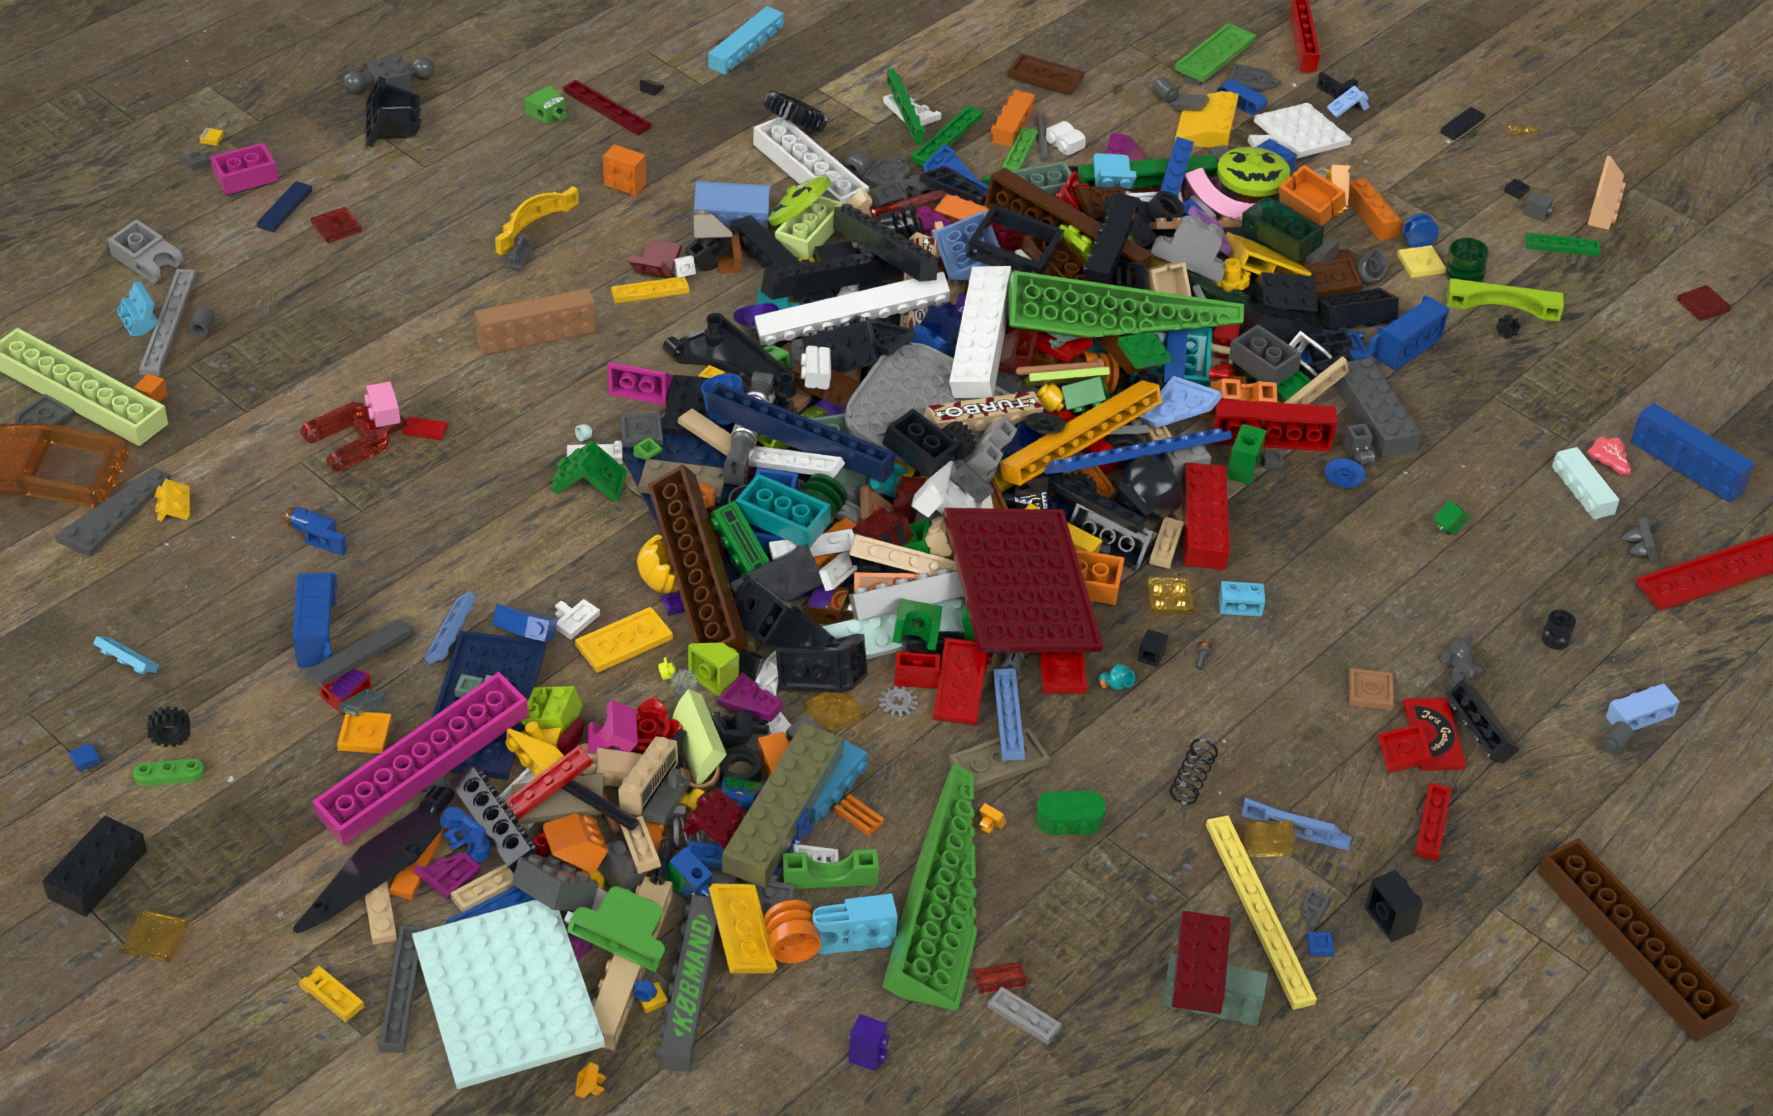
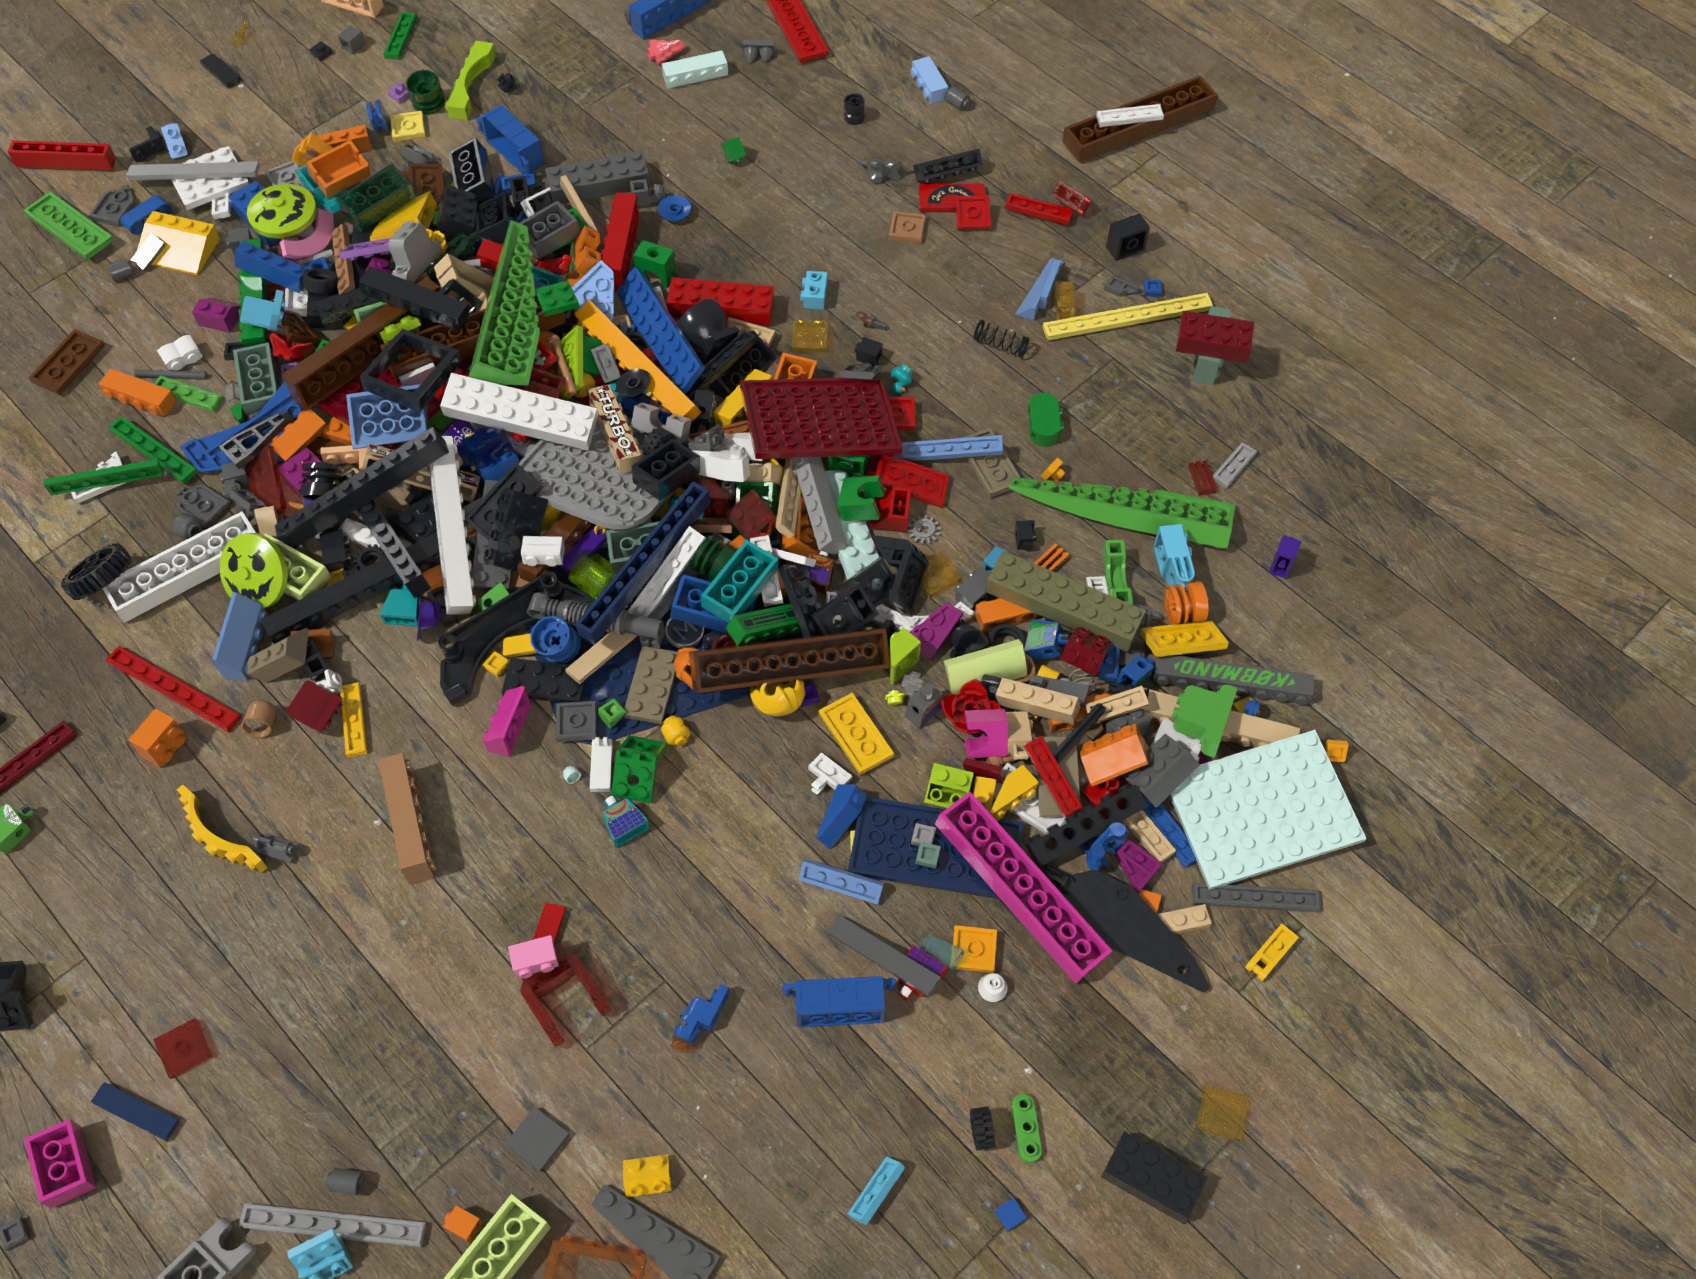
camera: 85 degrees left, 15 degrees up
(219, 433) = (537, 1139): none -> dark grey tile
(321, 747) = (992, 992): none -> white cone
(529, 468) = (623, 820): none -> torso
(629, 501) = (675, 731): none -> yellow head
(648, 228) = (261, 711): none -> medium nougat helmet
(656, 683) = (927, 702): none -> dark grey torso
(683, 181) = (173, 689): none -> red tile
(891, 787) = (1025, 534): none -> black brick
(1079, 405) = (606, 363): none -> flat silver plate
(1111, 630) = (862, 371): none -> dark grey tile
(1302, 115) = (193, 170): none -> light grey tile
(1455, 851) = (1071, 197): none -> clear red brick
(1622, 911) = (1129, 115): none -> white tile

